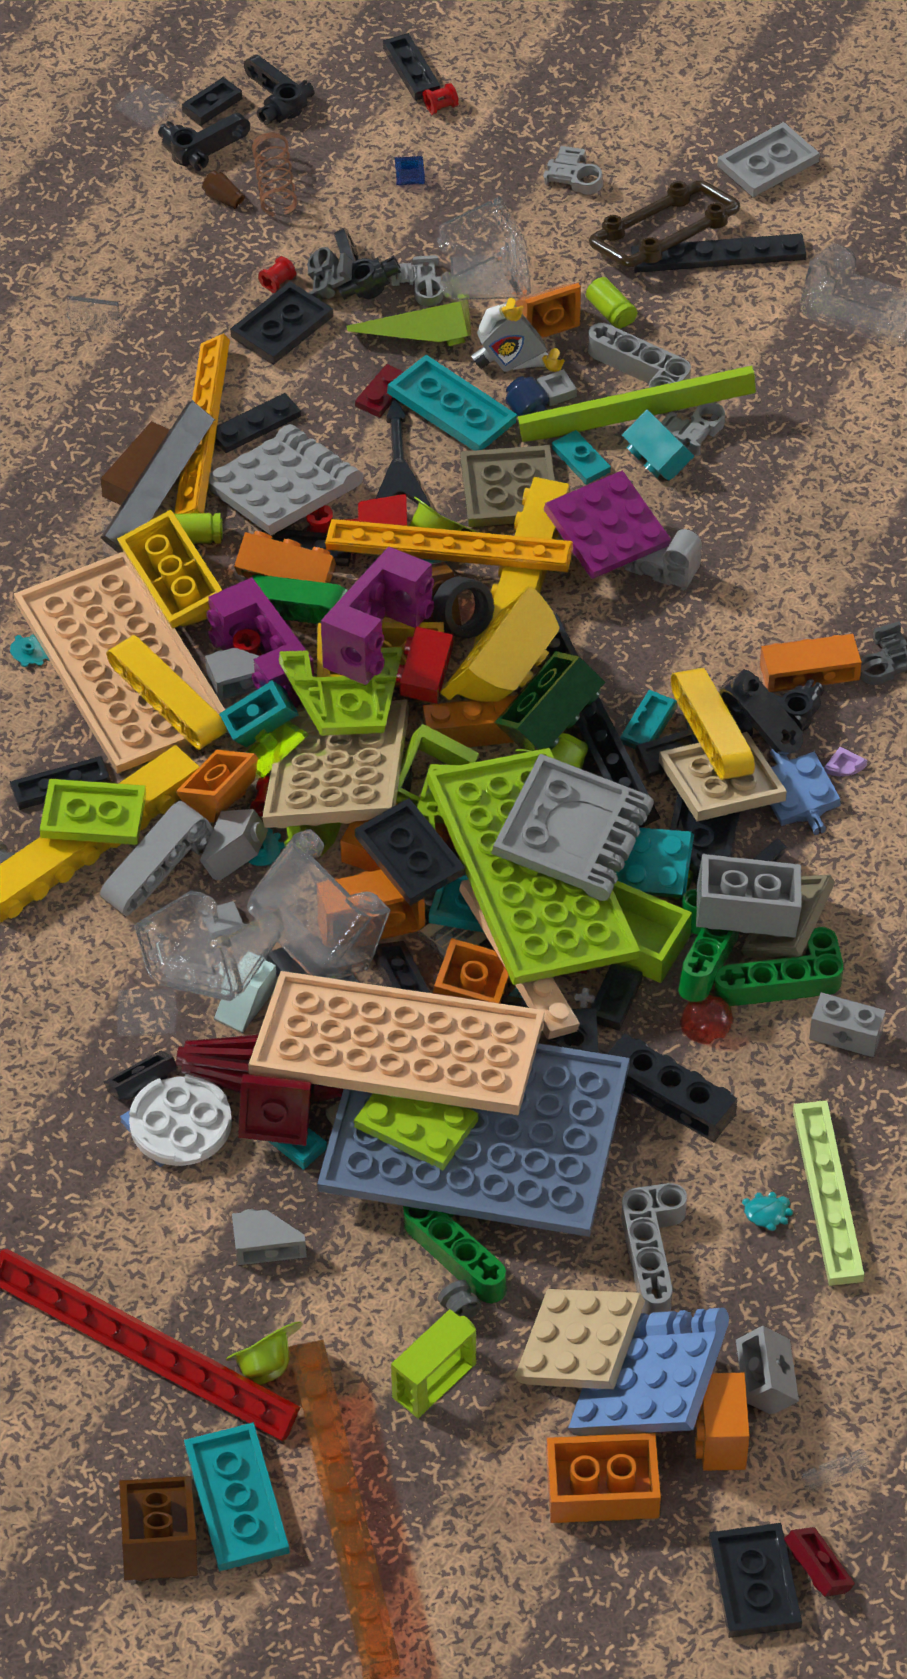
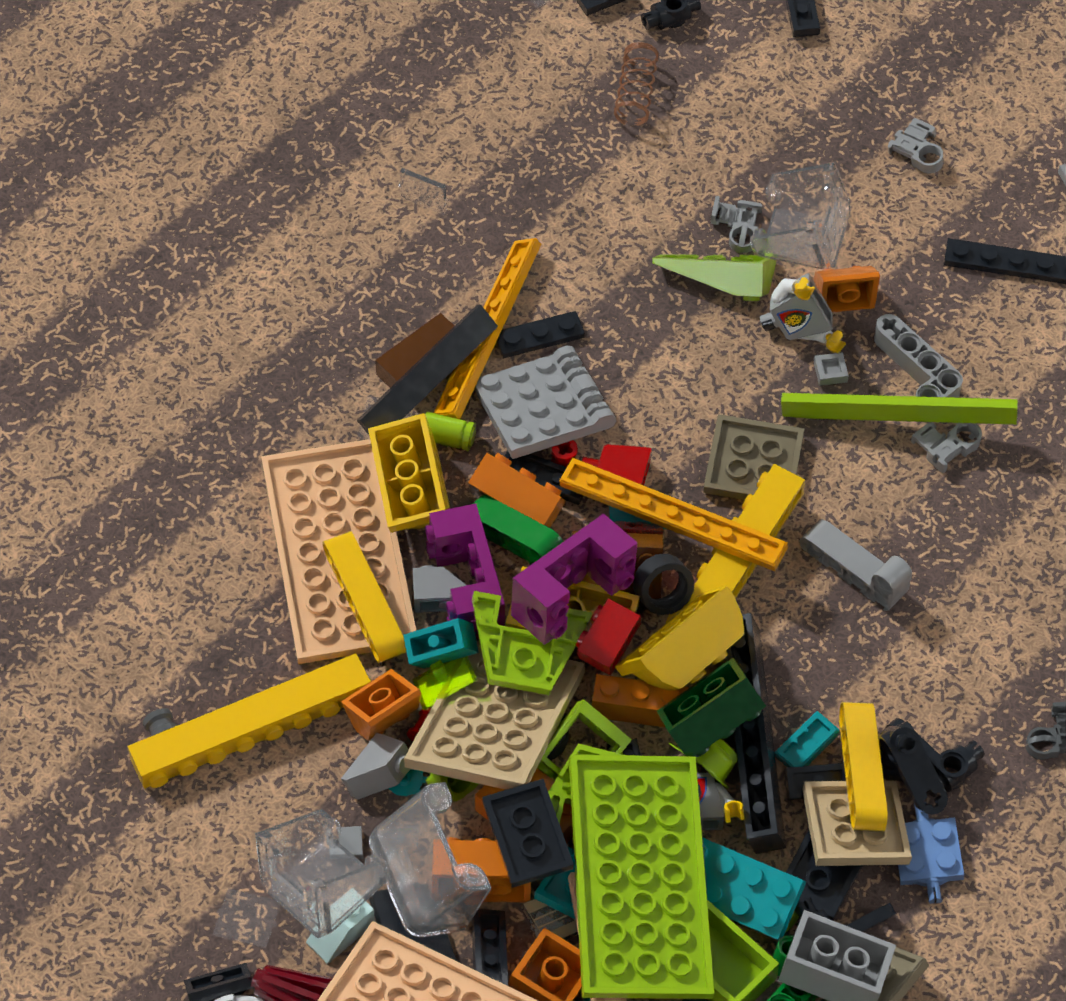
camera: 15 degrees right, 5 degrees up
(28, 651) = (257, 516): teal piece -> none
(33, 789) = (243, 659): black tile -> none
(93, 811) = (256, 705): lime plate -> none
(156, 857) = (302, 763): light grey beam -> none
(194, 147) = (569, 38): black piece -> none
(222, 189) = (584, 87): reddish brown cone -> none
(248, 641) = (459, 560): red bush -> none
(277, 274) = (607, 187): red bush -> none
(281, 322) = (595, 237): black plate -> none
(330, 273) = (653, 200): dark grey piece -> none
(368, 275) = (684, 209): black piece -> none
(375, 397) = (668, 331): dark red plate -> none
(399, 477) = (655, 425): black piece -> none
(409, 170) = (764, 109): clear blue plate -> none
(429, 518) = (672, 483): lime piece -> none
(431, 98) = (824, 37): red bush -> none
(452, 403) = (726, 362): teal plate -> none
(526, 396) = (798, 373): dark blue head -> none
(569, 823) = (684, 843): light grey hinge -> none
(581, 457) = (831, 447): teal plate -> none
(607, 524) = (828, 530): magenta plate -> none
(611, 303) = (910, 293): lime piece -> none
(651, 248) = (963, 248): dark brown bar -> none
(657, 445) = (905, 455): teal brick -> none
(820, 659) = (981, 720): orange brick -> none
(845, 762) = (981, 835): lavender tile -> none

